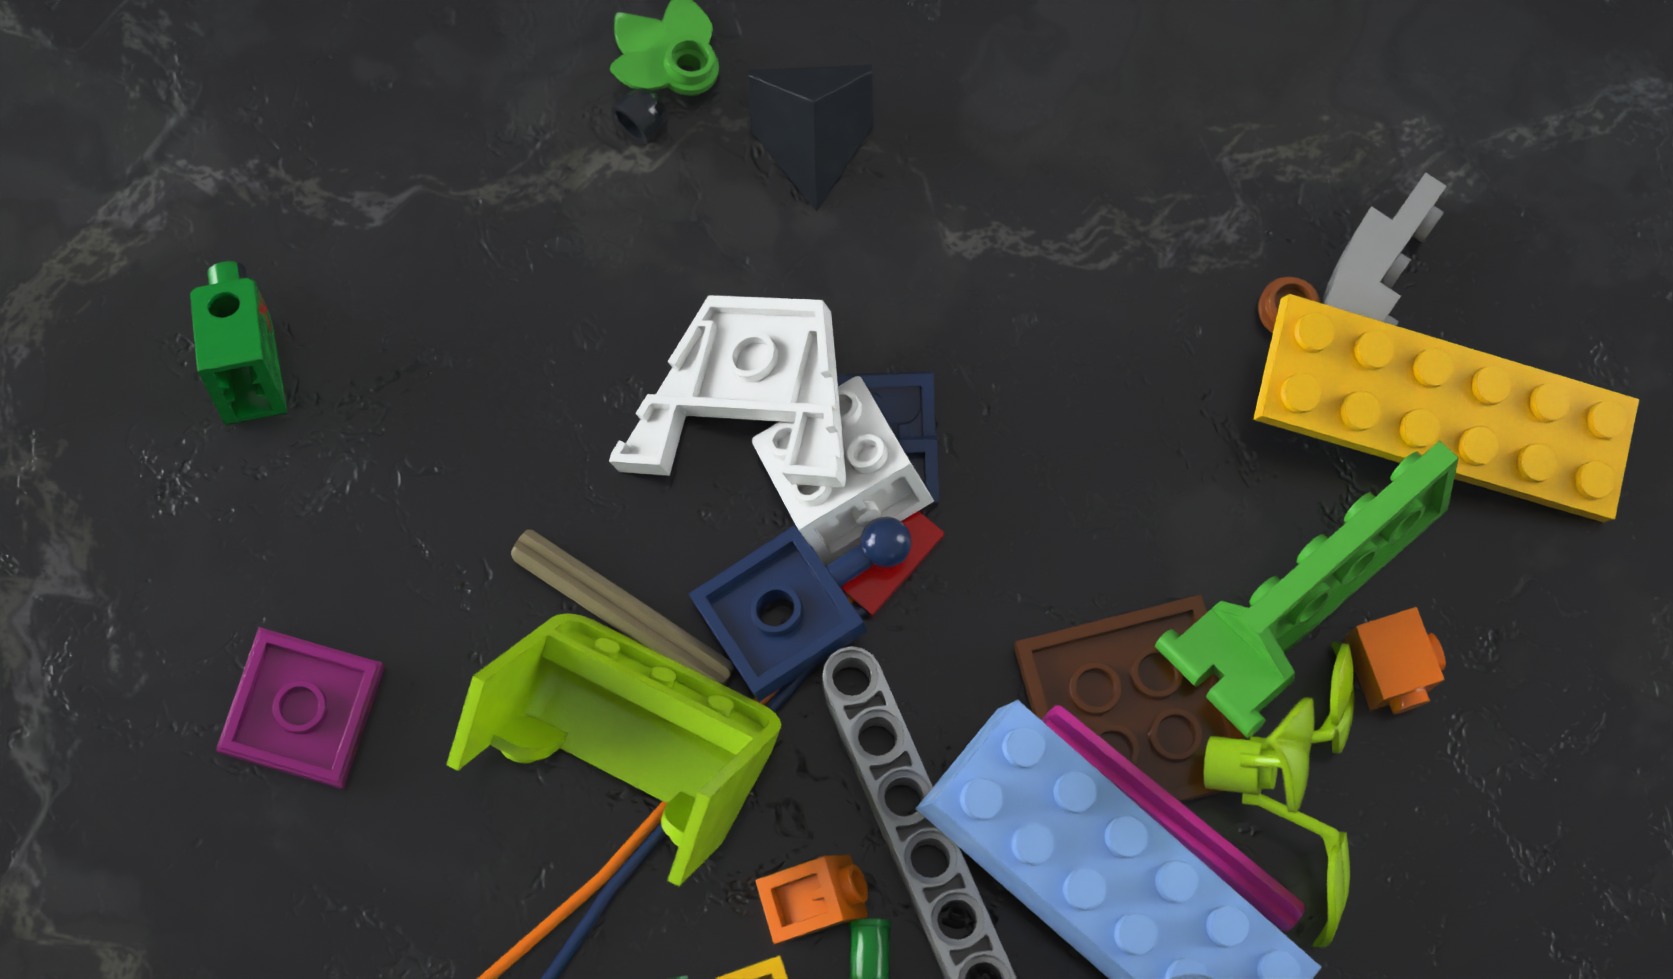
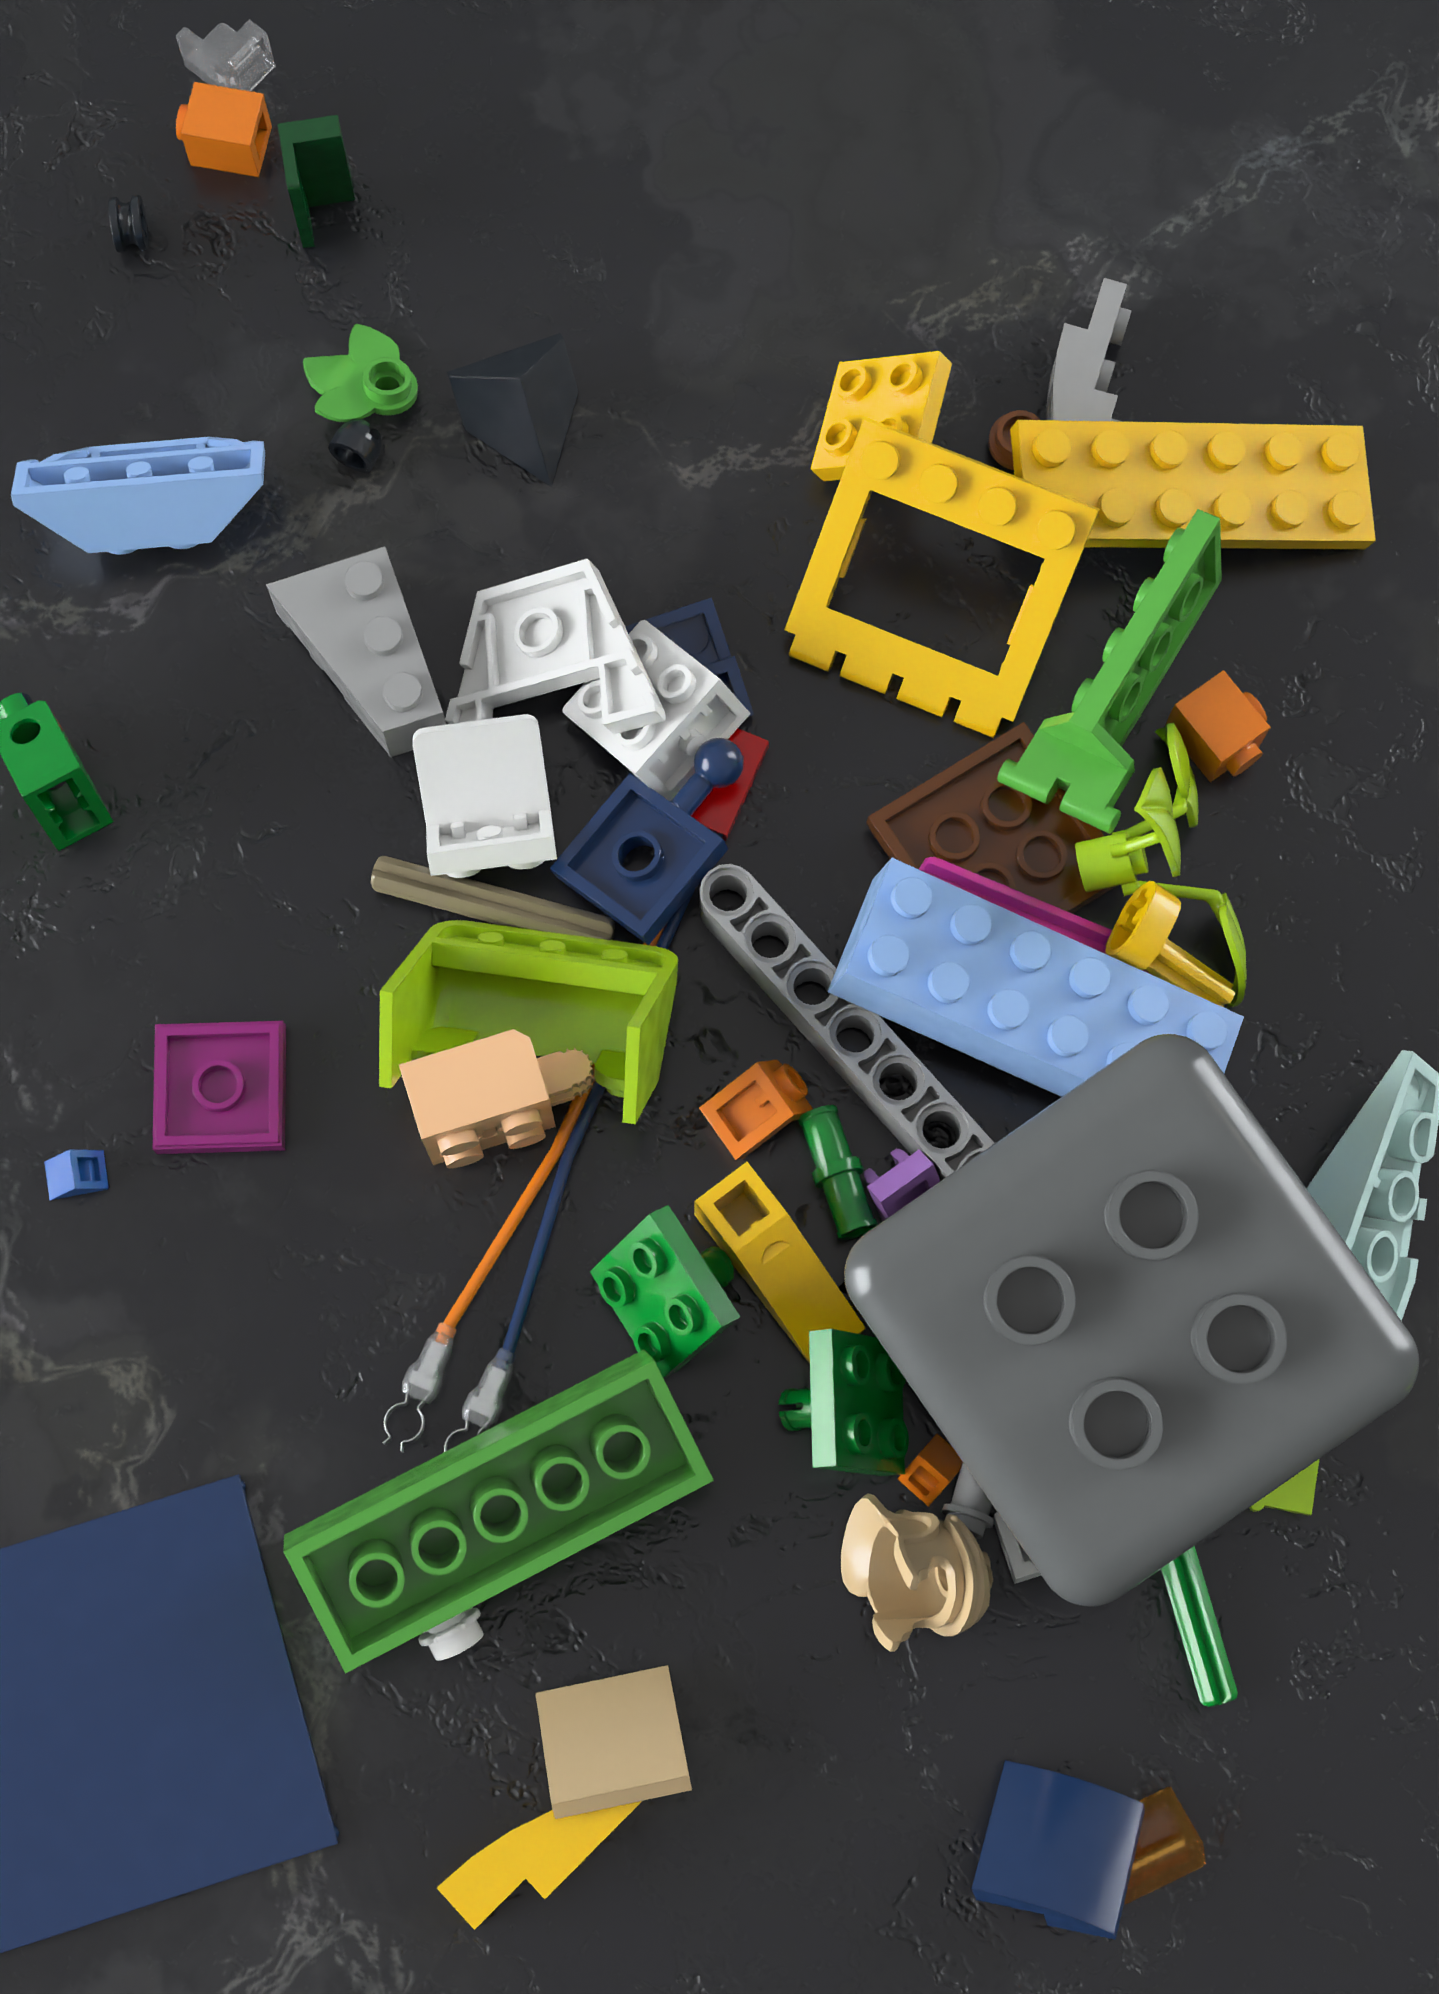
camera: 15 degrees left, 0 degrees up
(137, 749) = (76, 1173): none -> blue piece
(415, 97) = (141, 492): none -> light blue wedge
(551, 805) = (490, 1095): none -> light nougat hinge
(585, 317) = (365, 642): none -> light grey wedge
(646, 505) = (484, 795): none -> white bracket
(1158, 245) = (890, 390): none -> yellow plate
(1216, 358) = (968, 496): none -> yellow hinge
(1243, 861) = (1143, 942): none -> yellow piece

